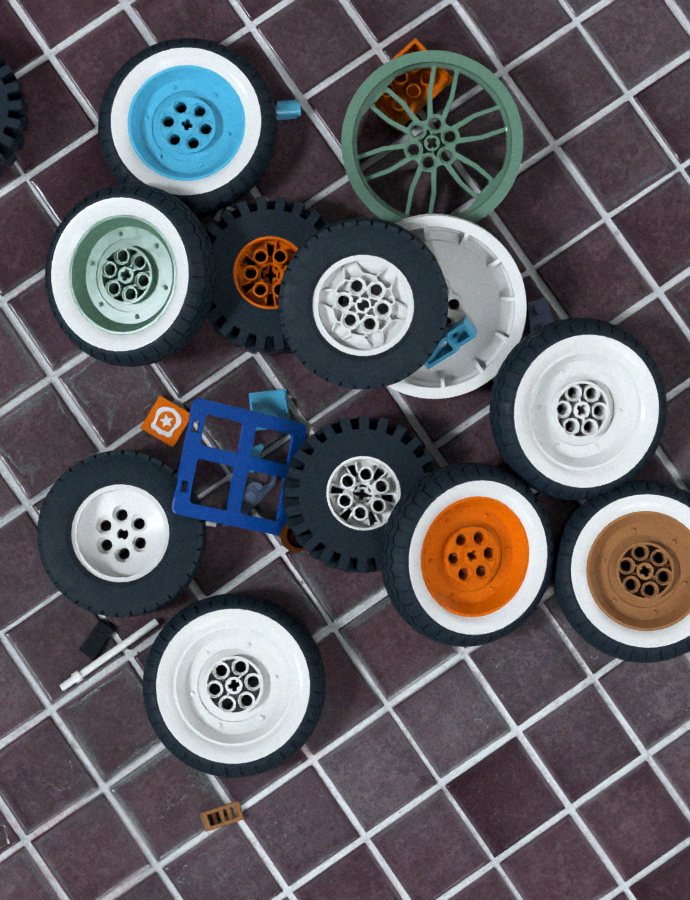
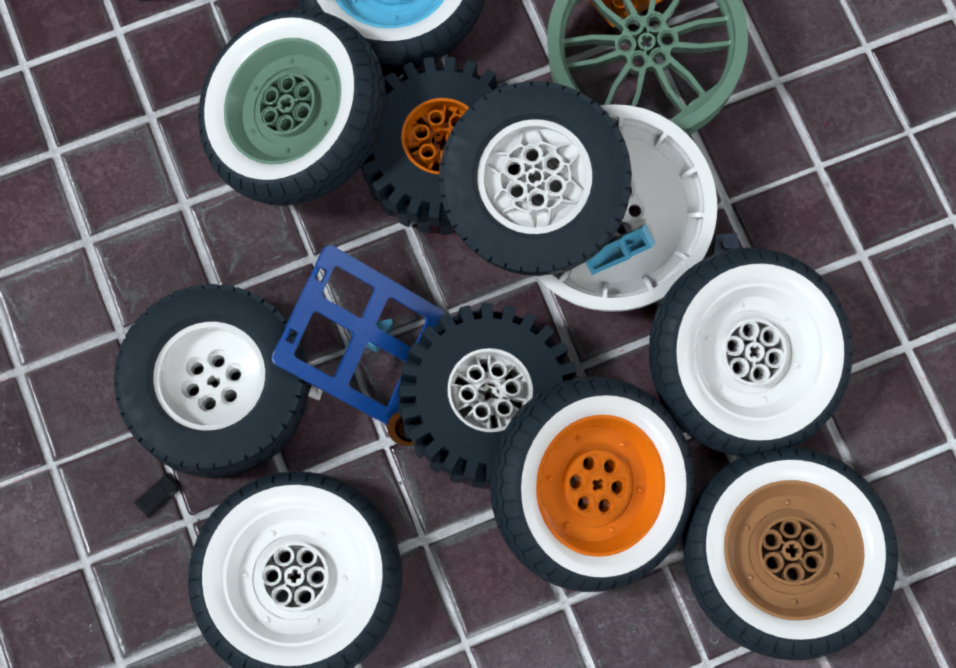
camera: 15 degrees right, 10 degrees down
(77, 676) = (124, 530): white bar -> none
(166, 421) = (291, 275): orange tile -> none
(254, 494) = (368, 375): sand blue plate -> none
(270, 403) = (413, 279): medium azure piece -> none

